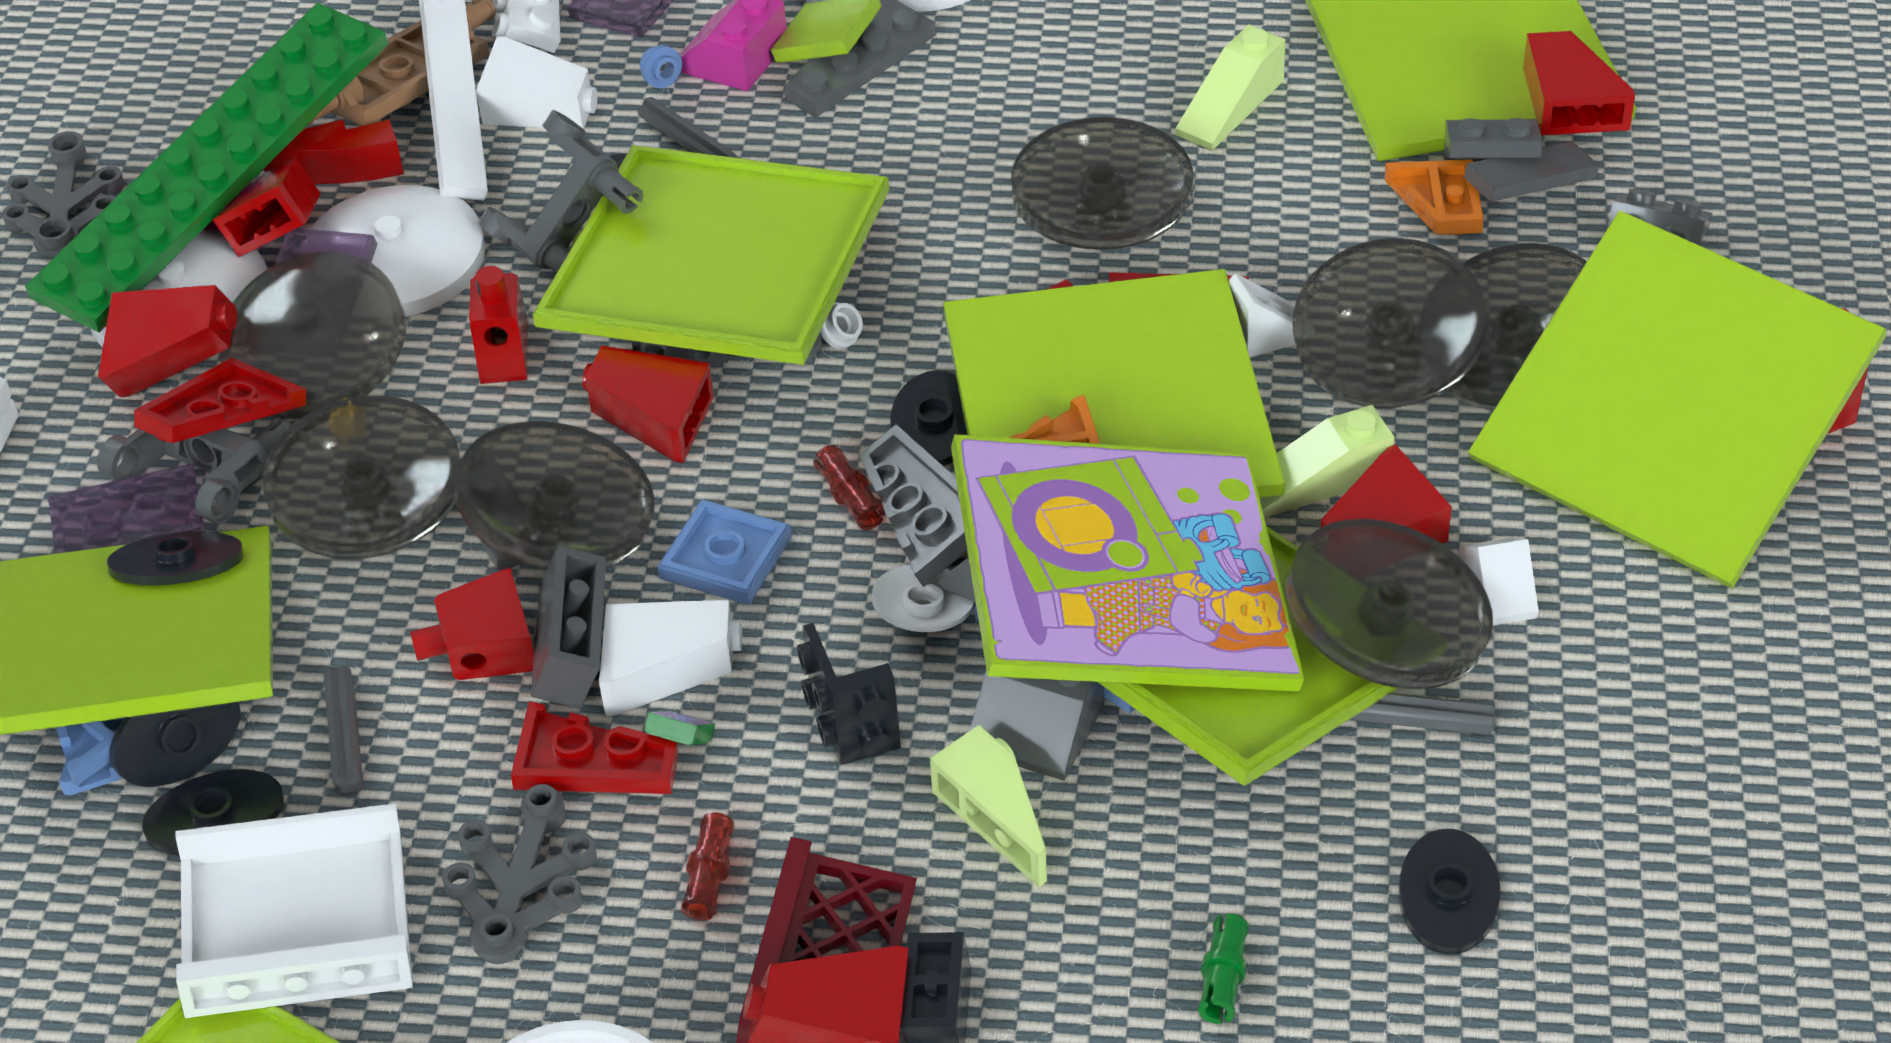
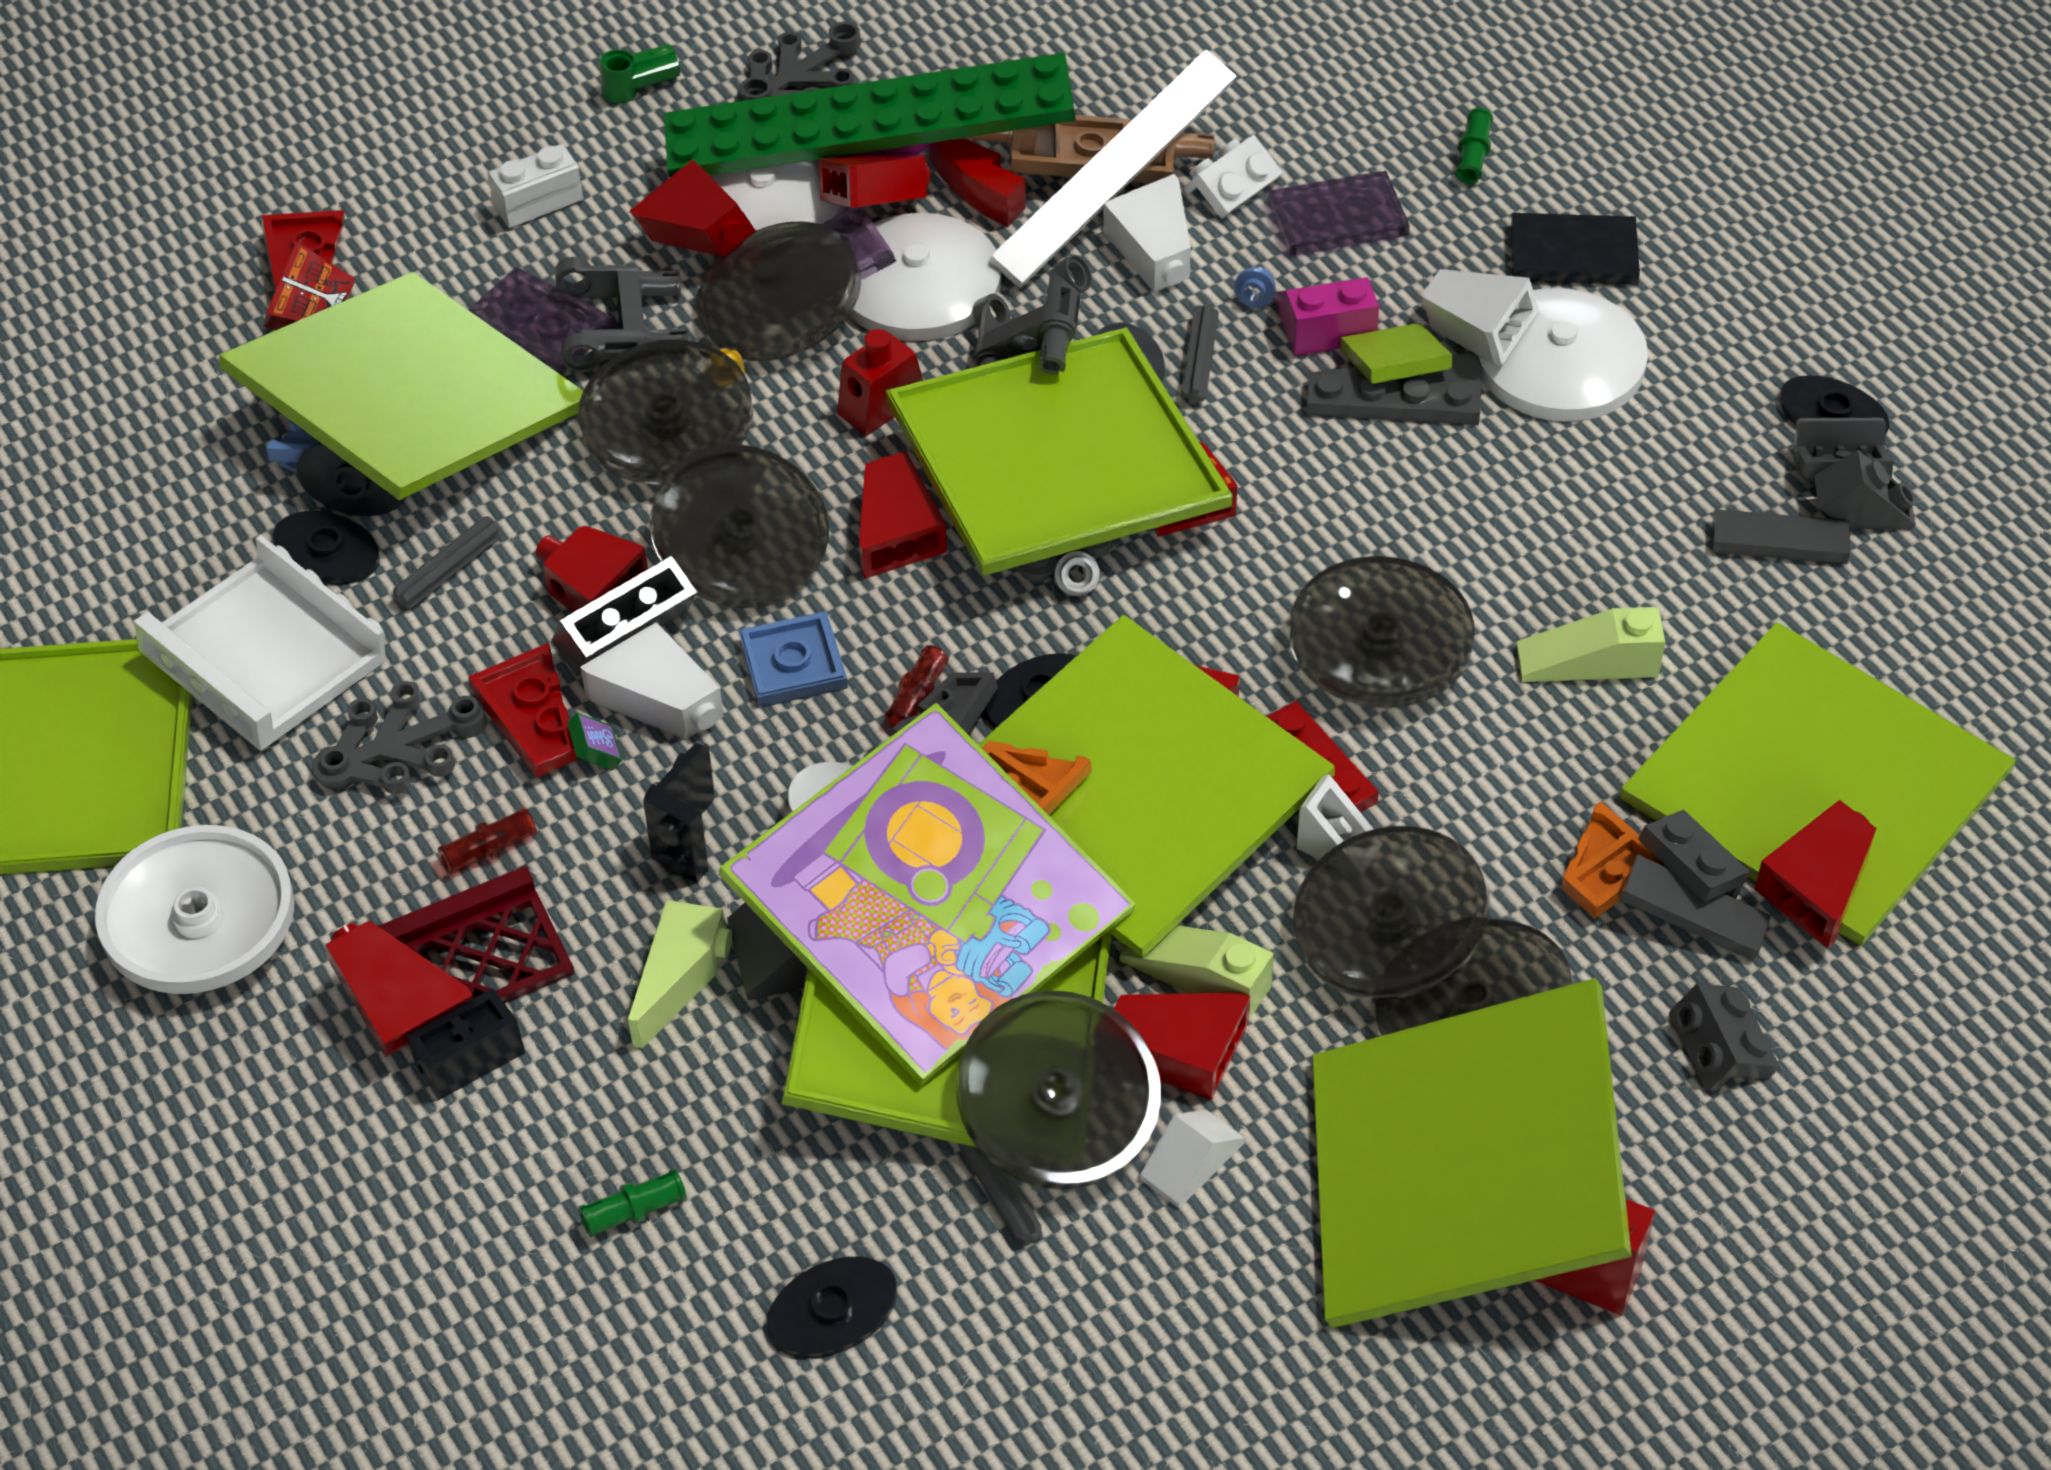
camera: 50 degrees right, 5 degrees up
(175, 558) = (503, 368): black piece -> none
(218, 400) = (654, 285): red wing -> none

